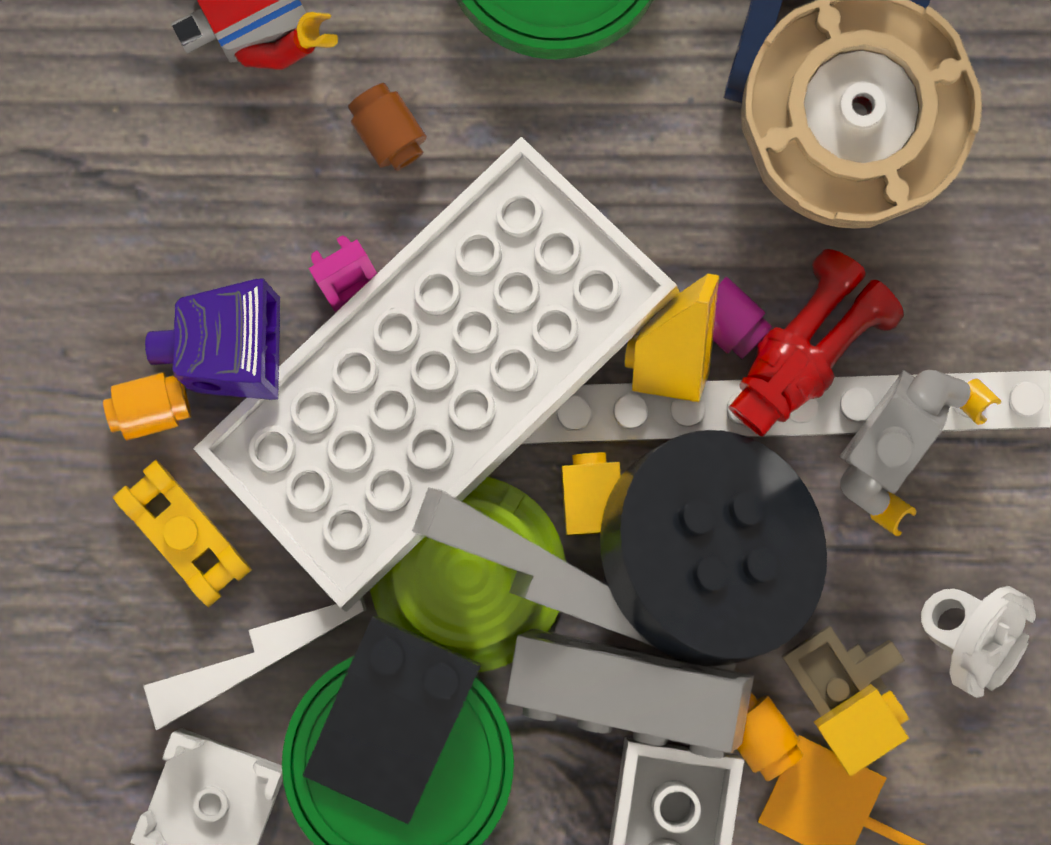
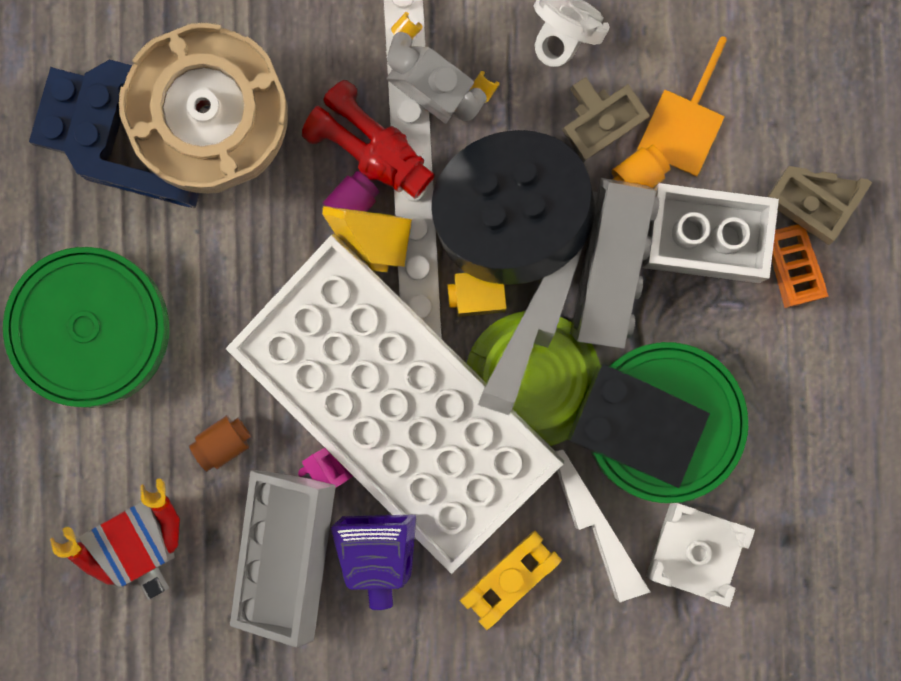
camera: 90 degrees left, 0 degrees up
(146, 406) = (422, 607): light orange brick -> none
(224, 210) = (282, 557): none -> light grey slope
(863, 728) = (634, 102): yellow brick -> none

